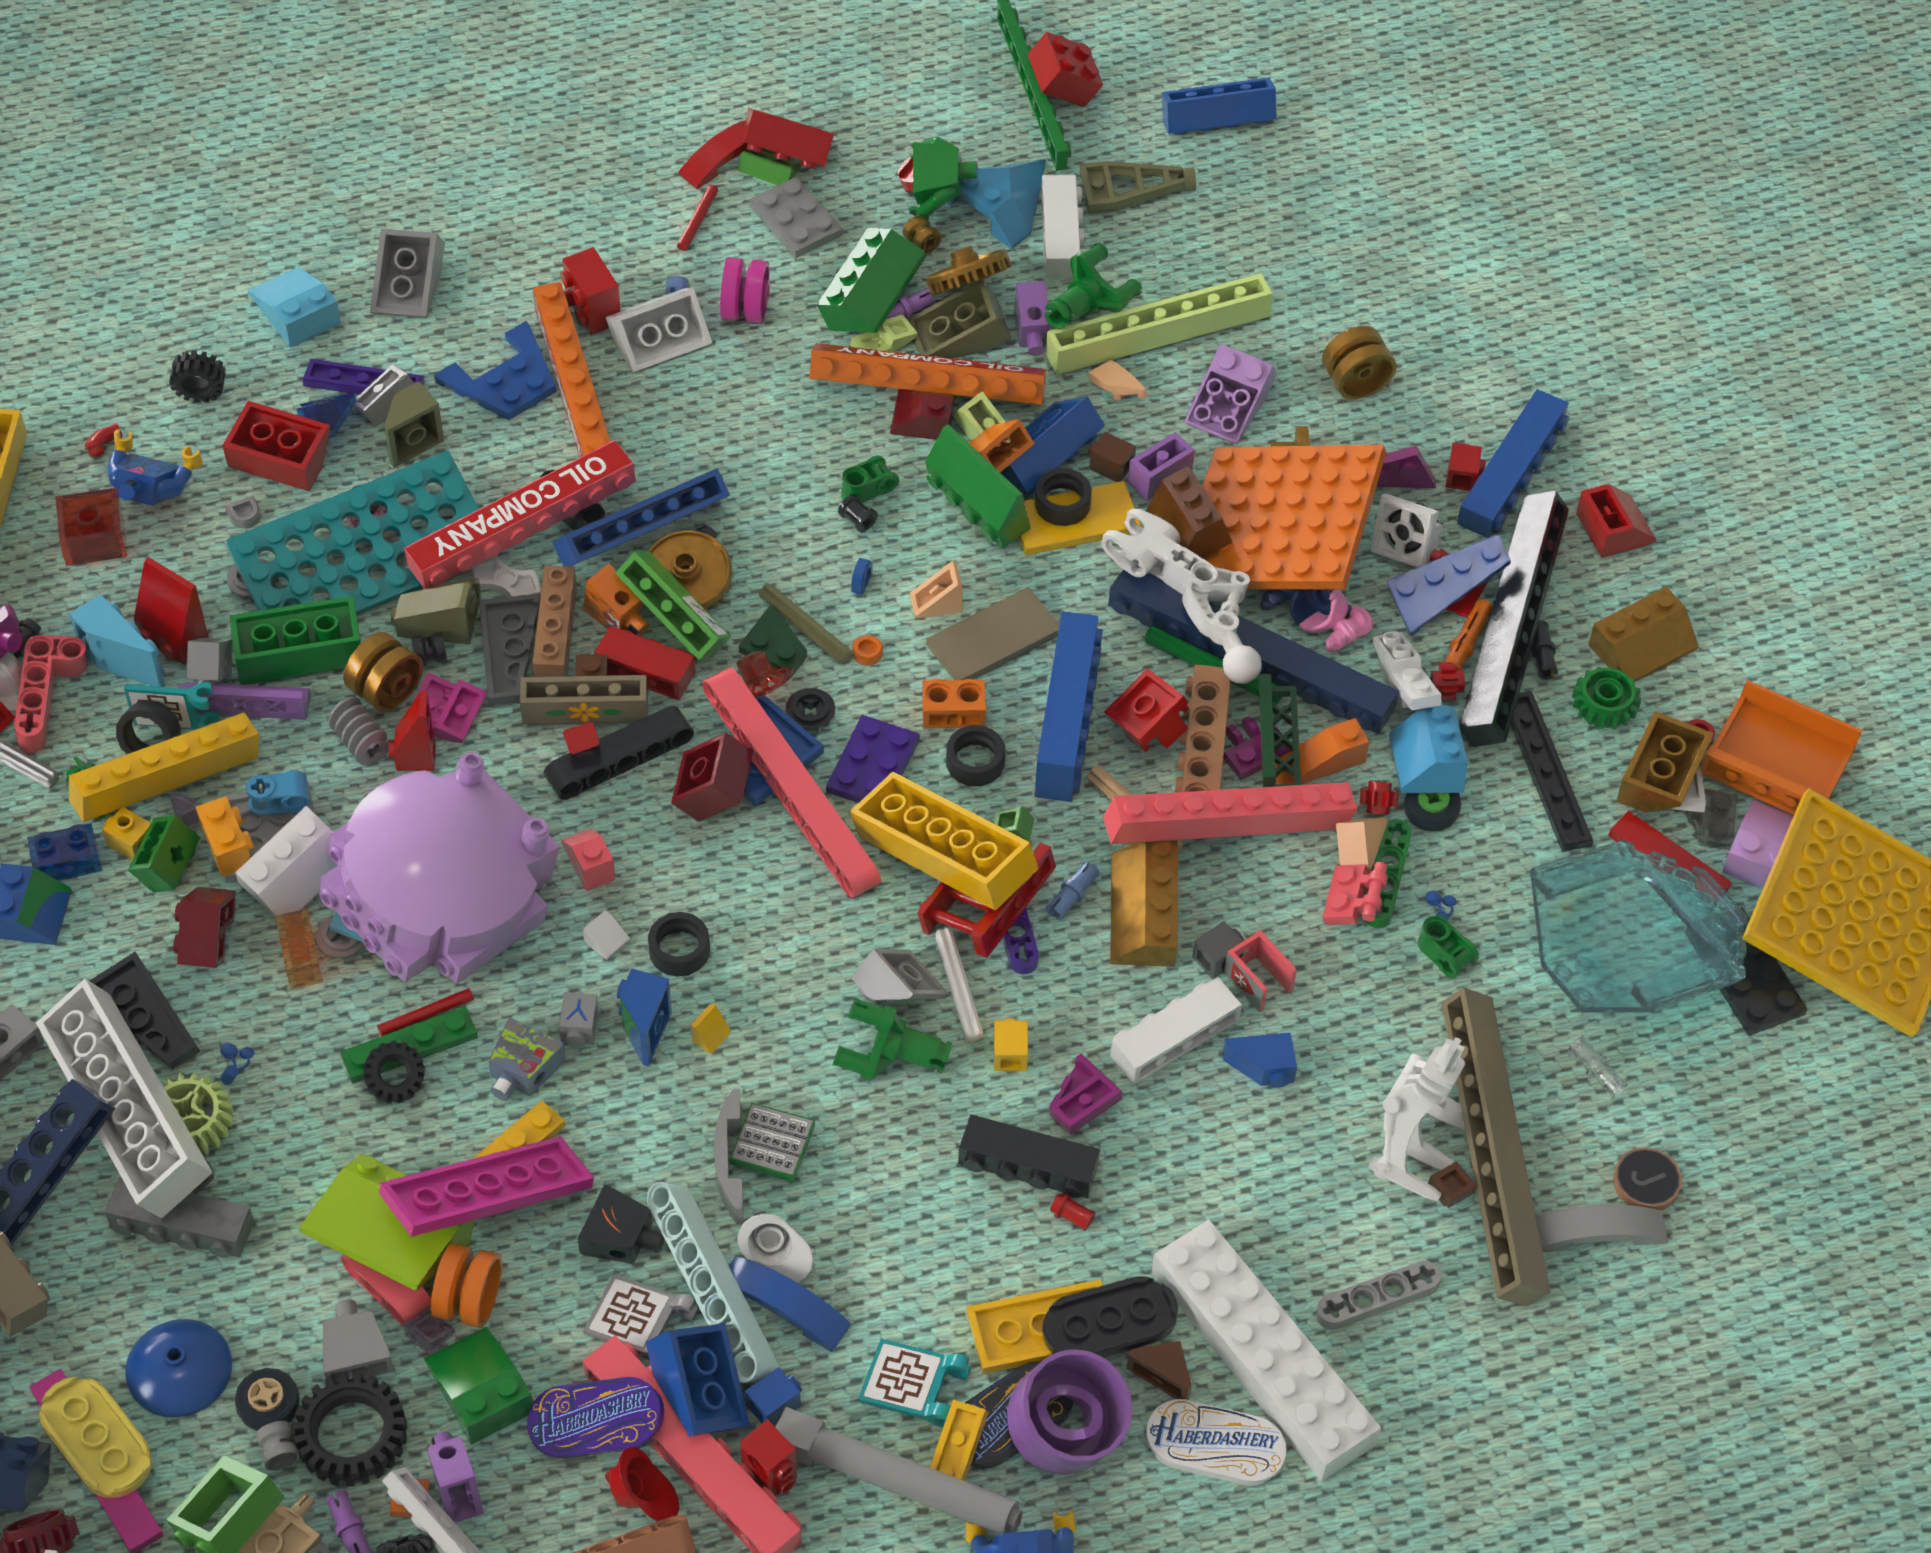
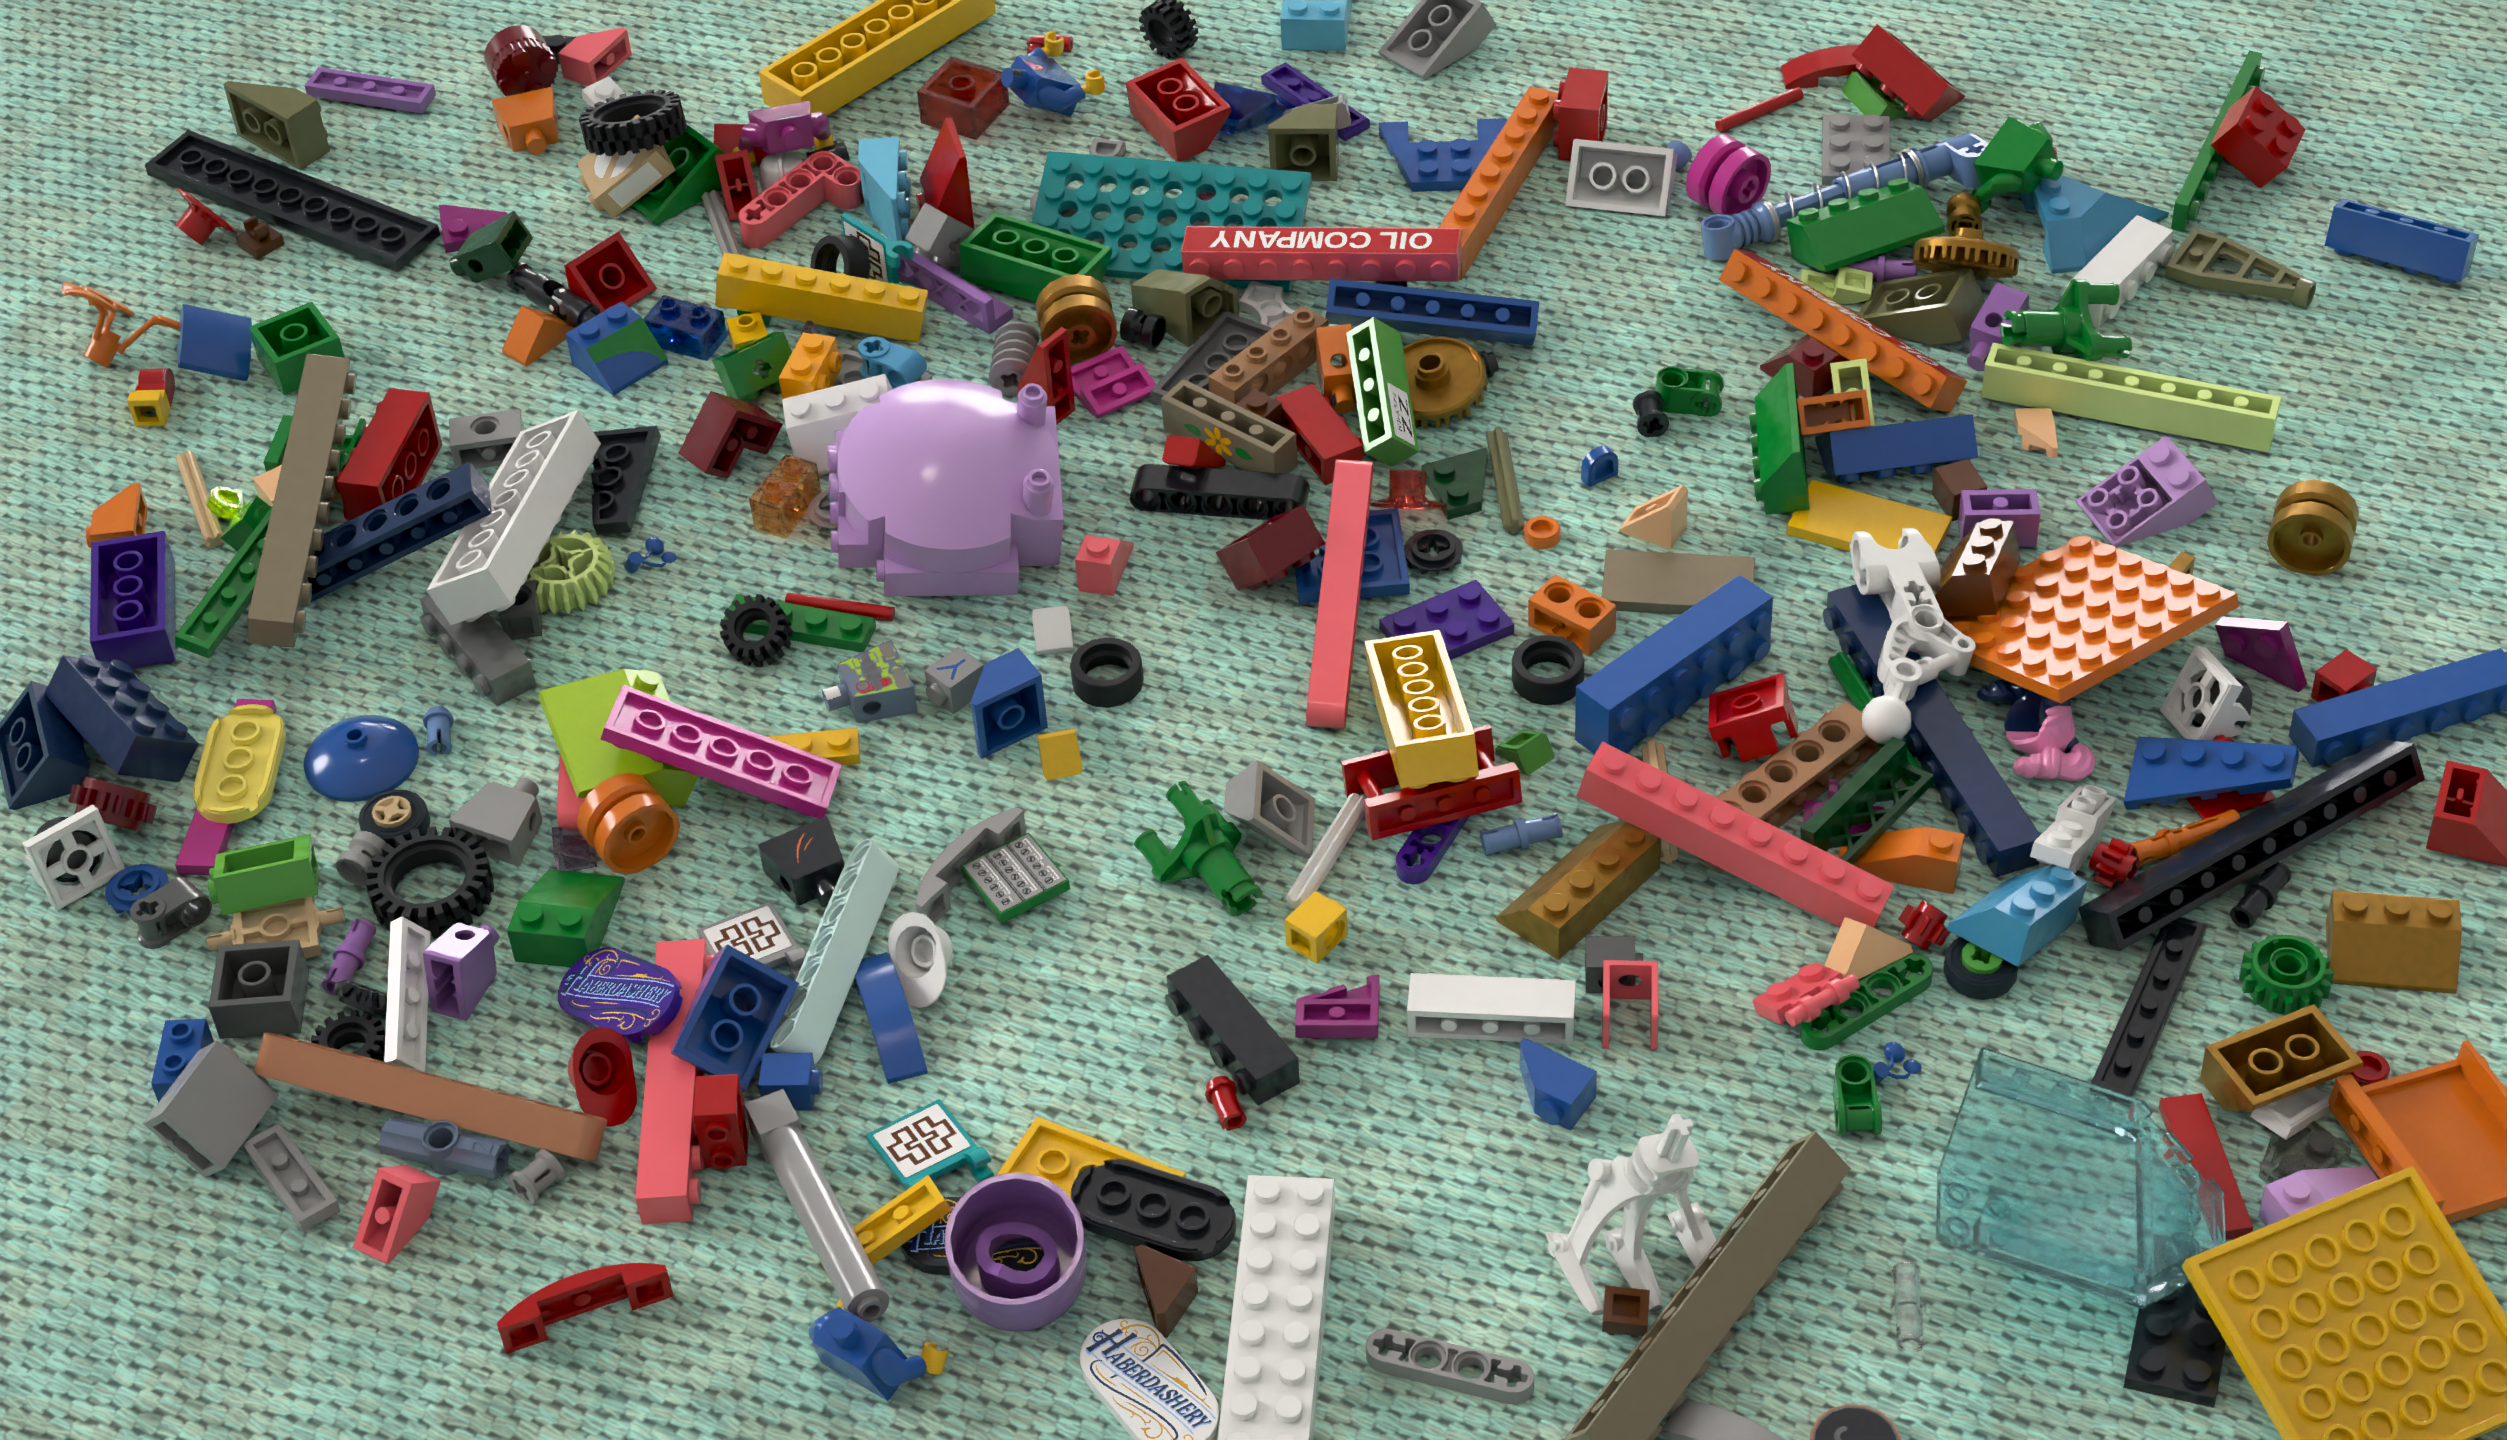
camera: 45 degrees right, 10 degrees down
(222, 1306) = (438, 724): none -> medium blue pin
(858, 215) = (1764, 221): none -> medium blue piece
(1064, 479) = (1866, 513): black tyre -> none

